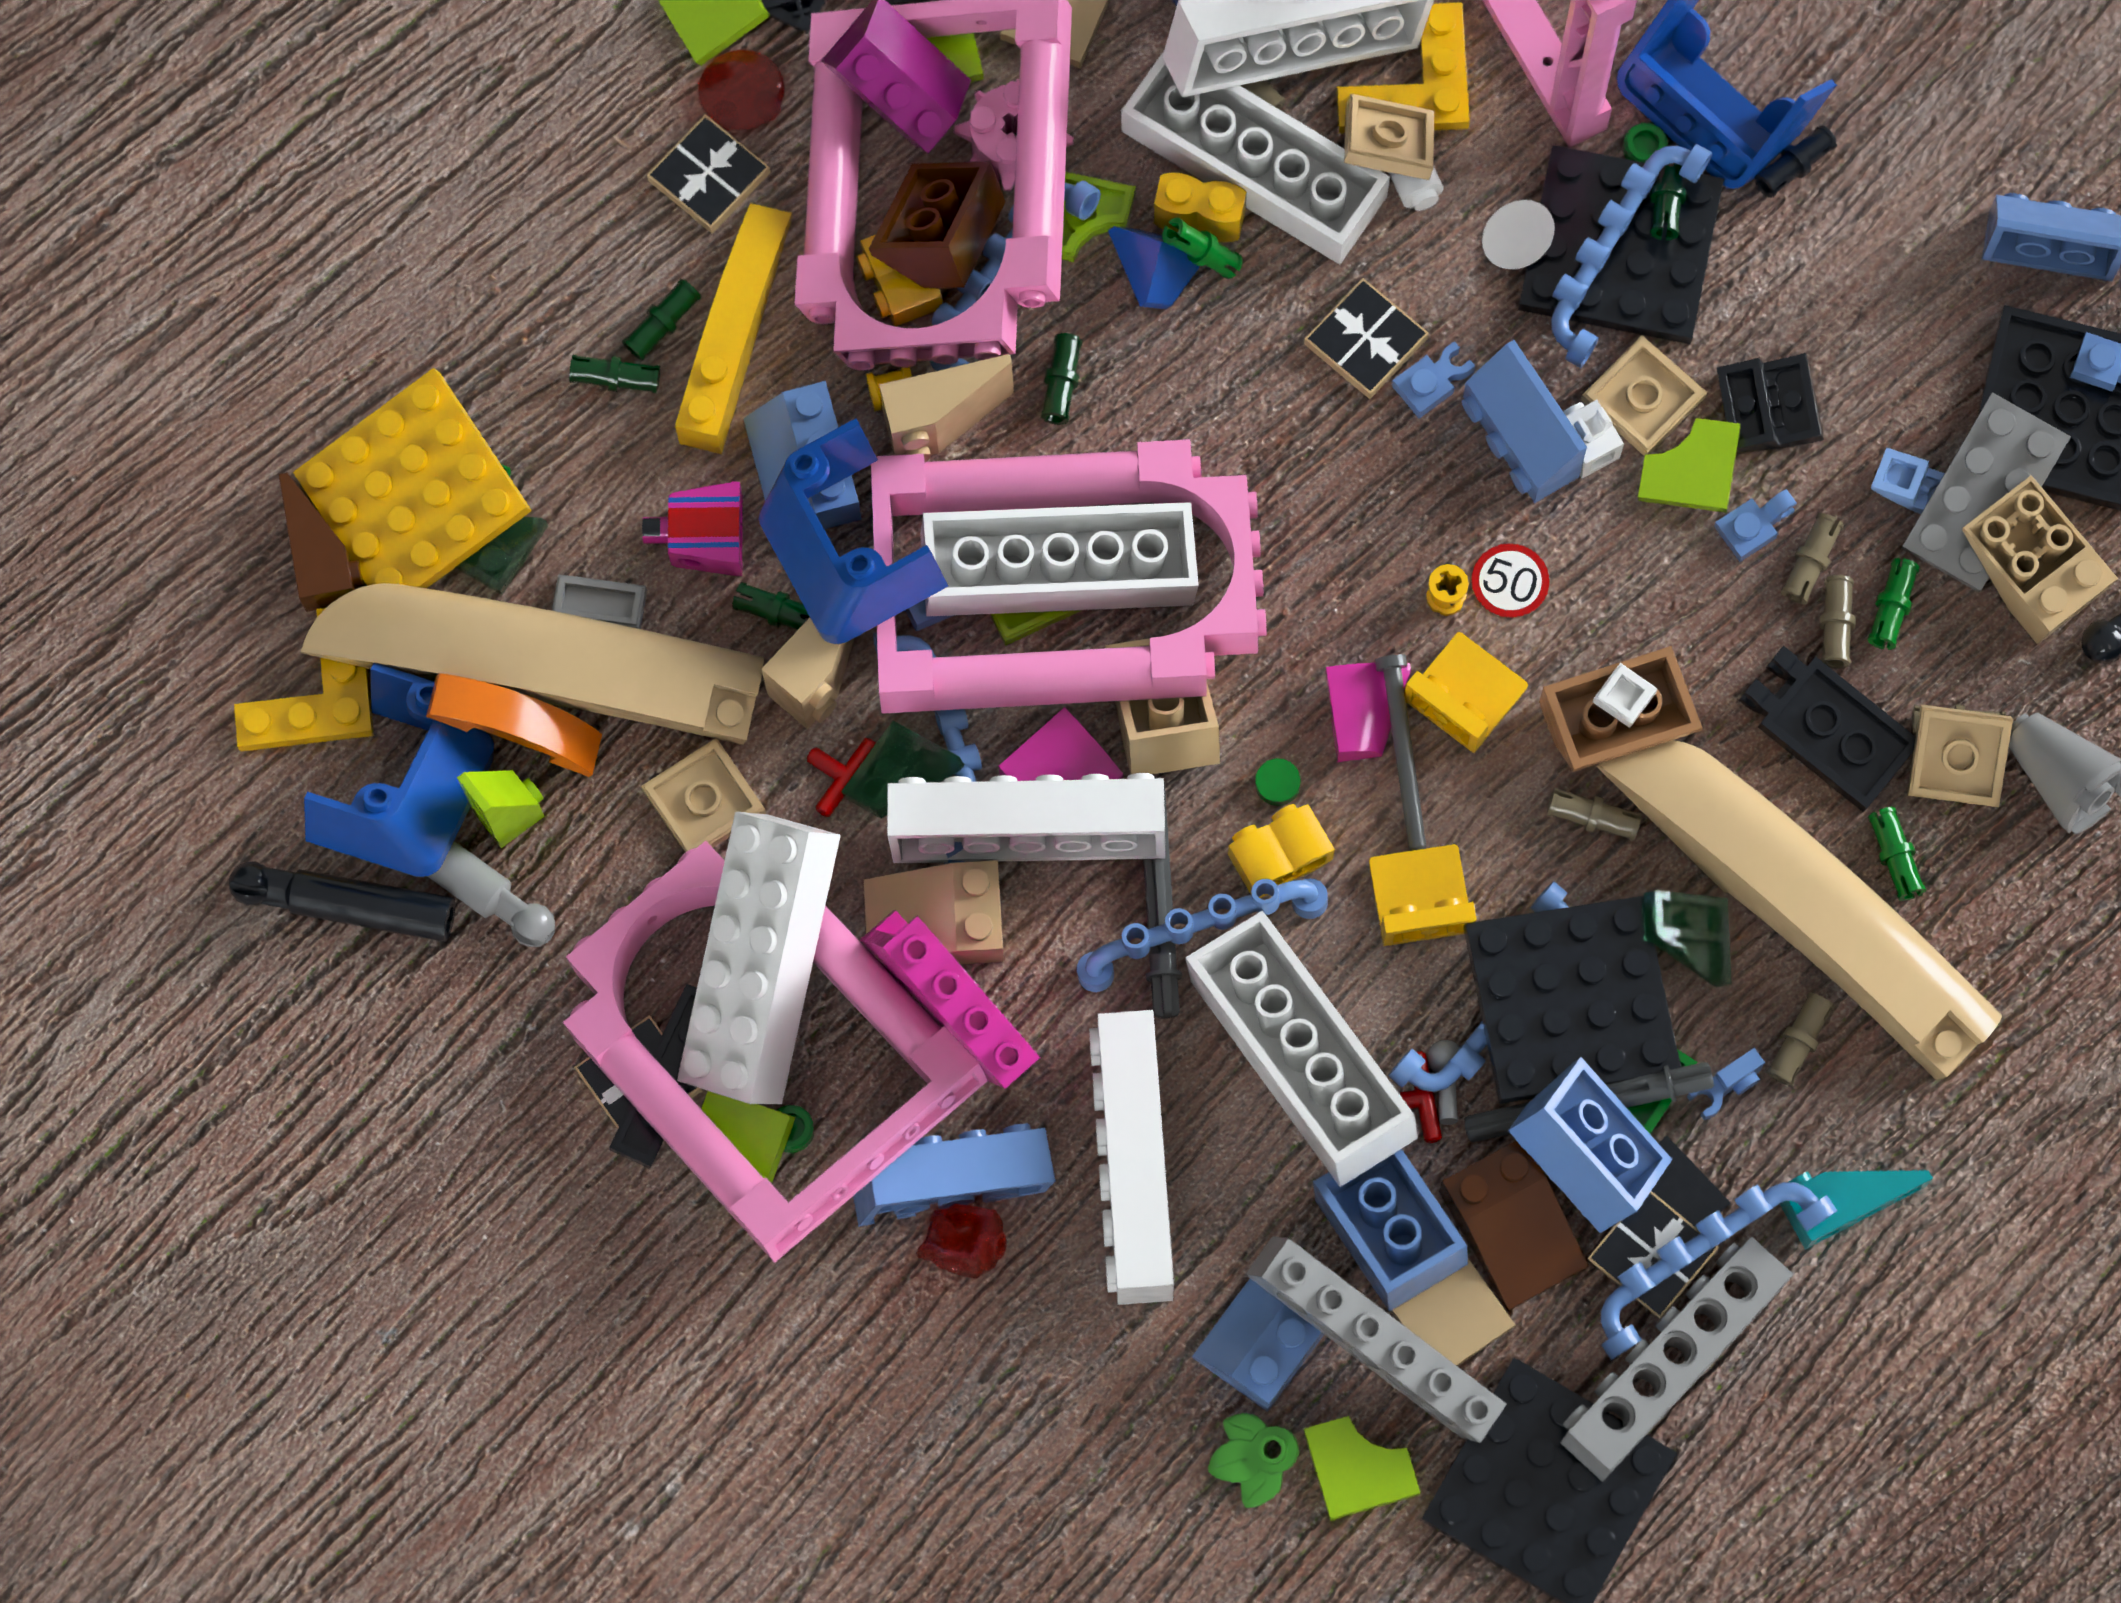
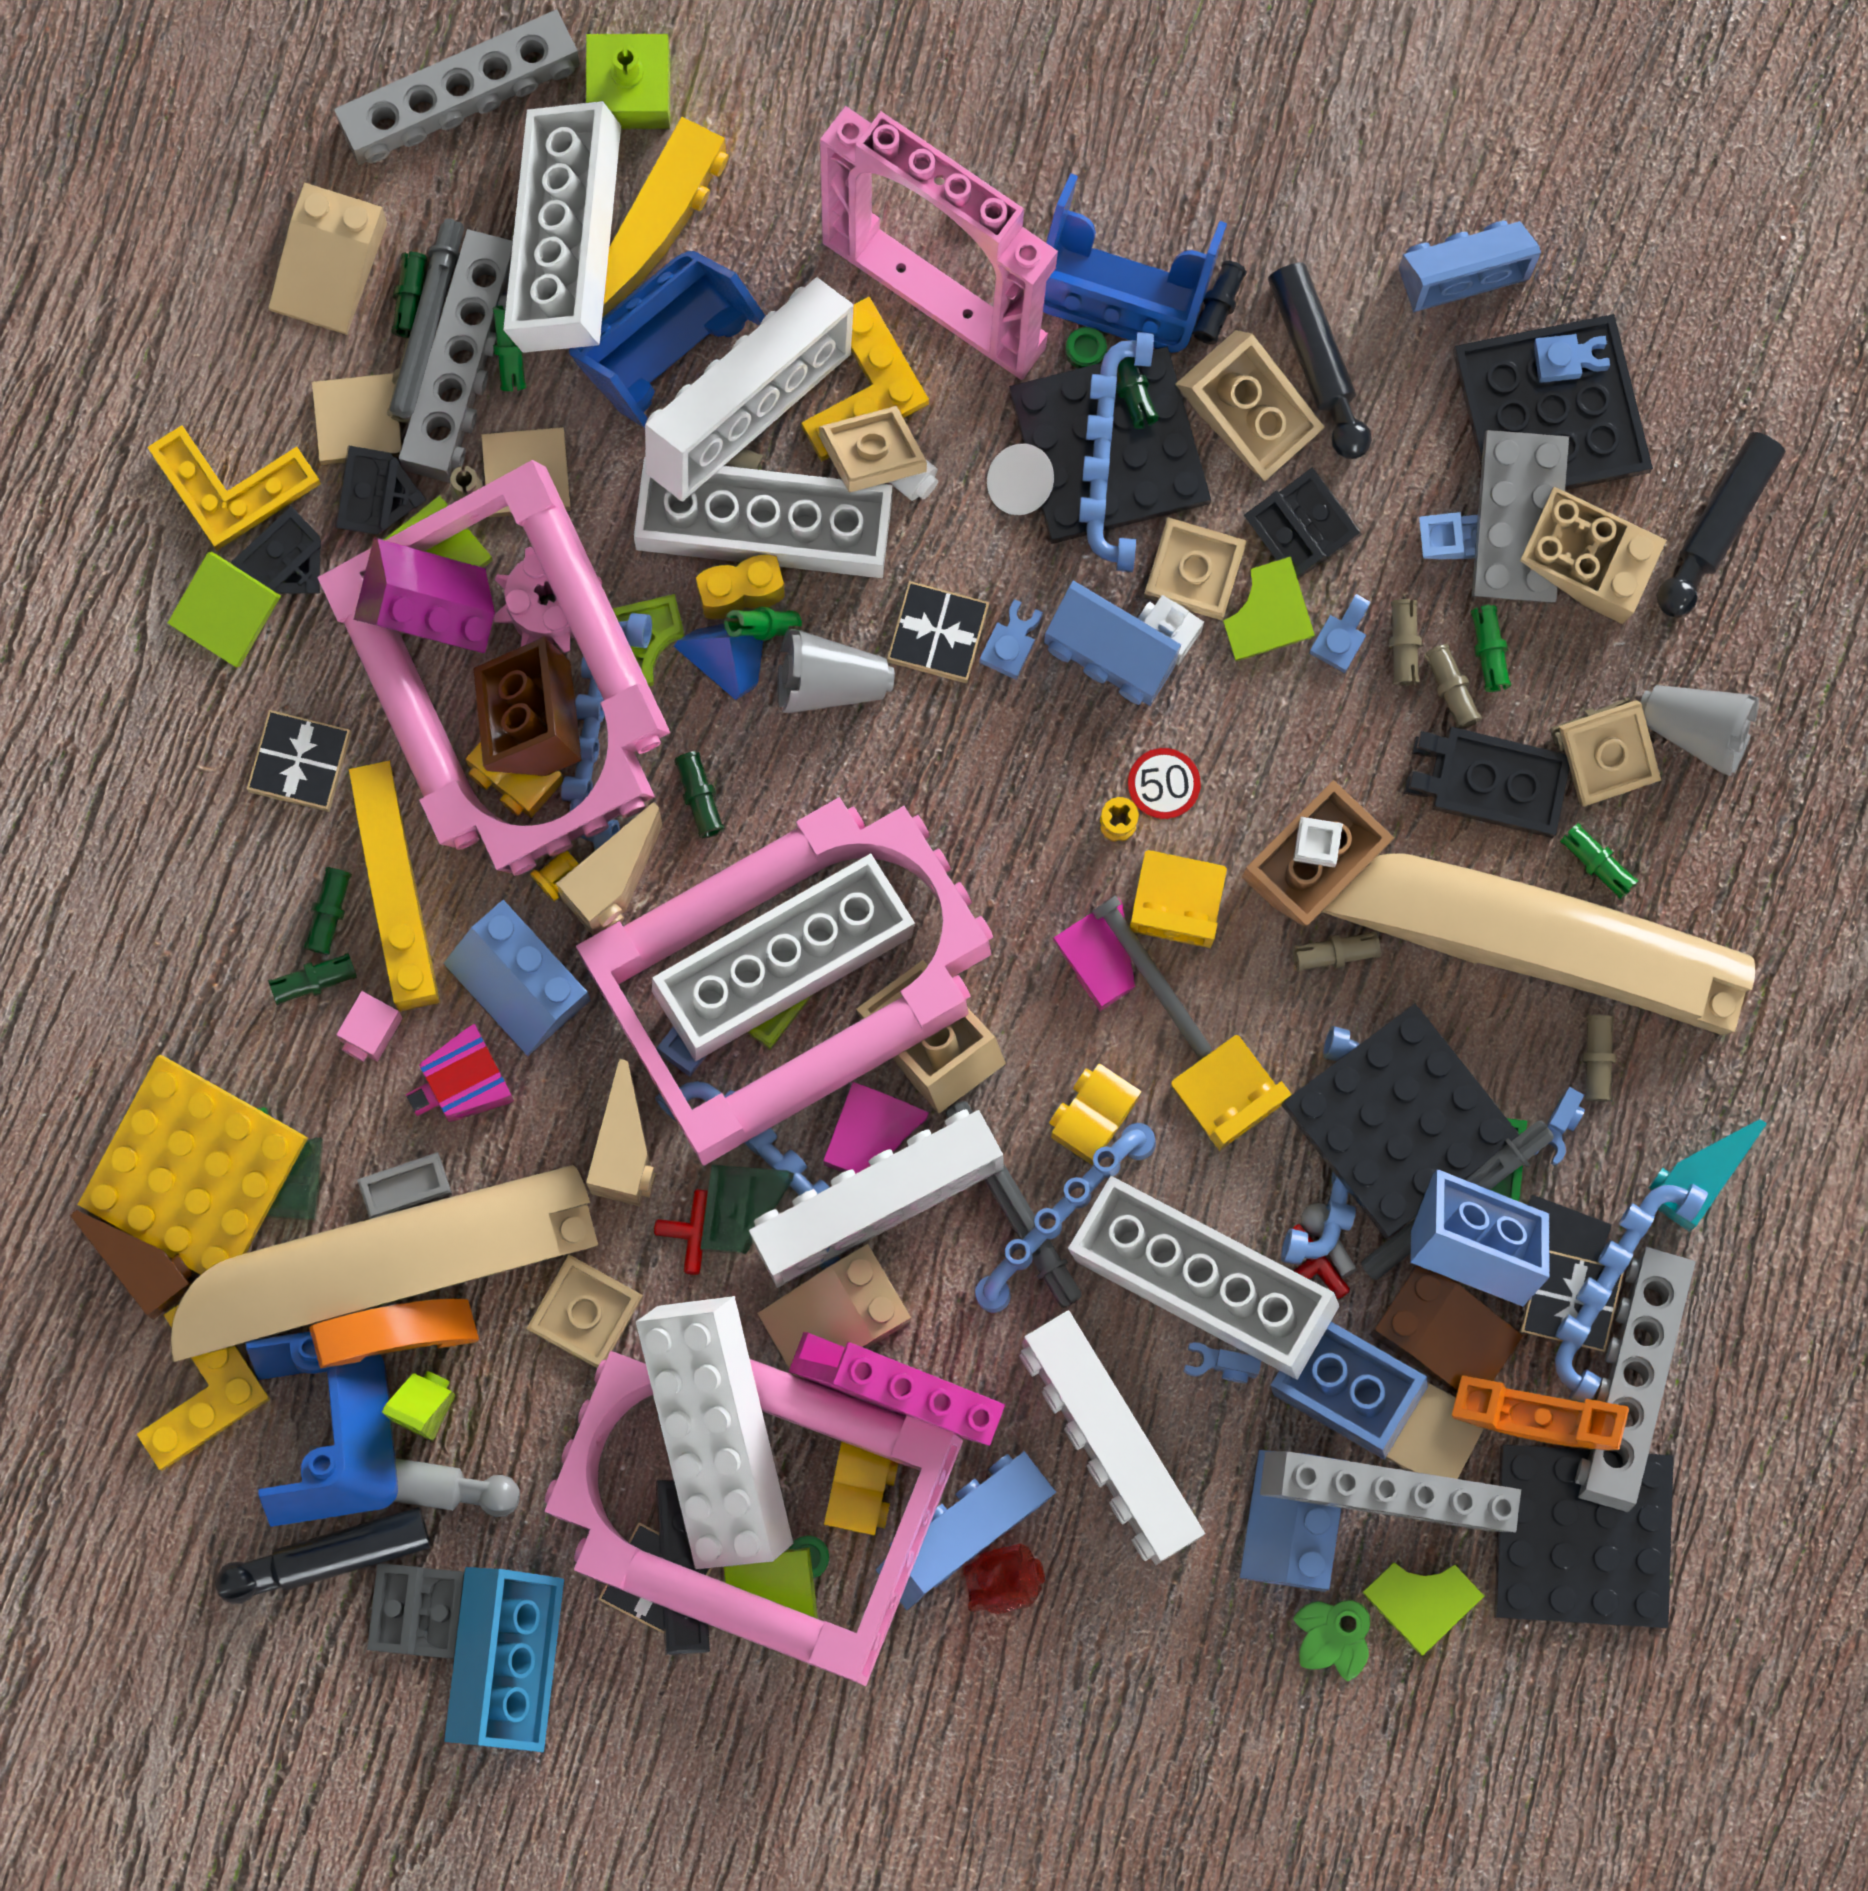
camera: 35 degrees left, 5 degrees up
(403, 995) = (415, 1611): none -> dark grey slope
(458, 1077) = (504, 1659): none -> dark azure slope
(642, 441) = (368, 1028): none -> bright pink brick
(741, 90) = (288, 672): clear red dish -> none
(774, 607) = (562, 1116): dark green pin -> none
(846, 591) = (621, 1088): blue windscreen -> none
(871, 1087) = (859, 1489): none -> yellow brick
(1241, 325) = (828, 674): none -> light grey cone
(1277, 782) = (1060, 1054): green tile -> none
(1290, 1150) = (1234, 1365): none -> medium blue plate
(1559, 1343) = (1540, 1416): none -> orange slope
(1691, 931) = (1468, 1013): clear green wing -> none
(1776, 268) = (1250, 404): none -> tan slope
(1866, 254) = (1319, 356): none -> black piece

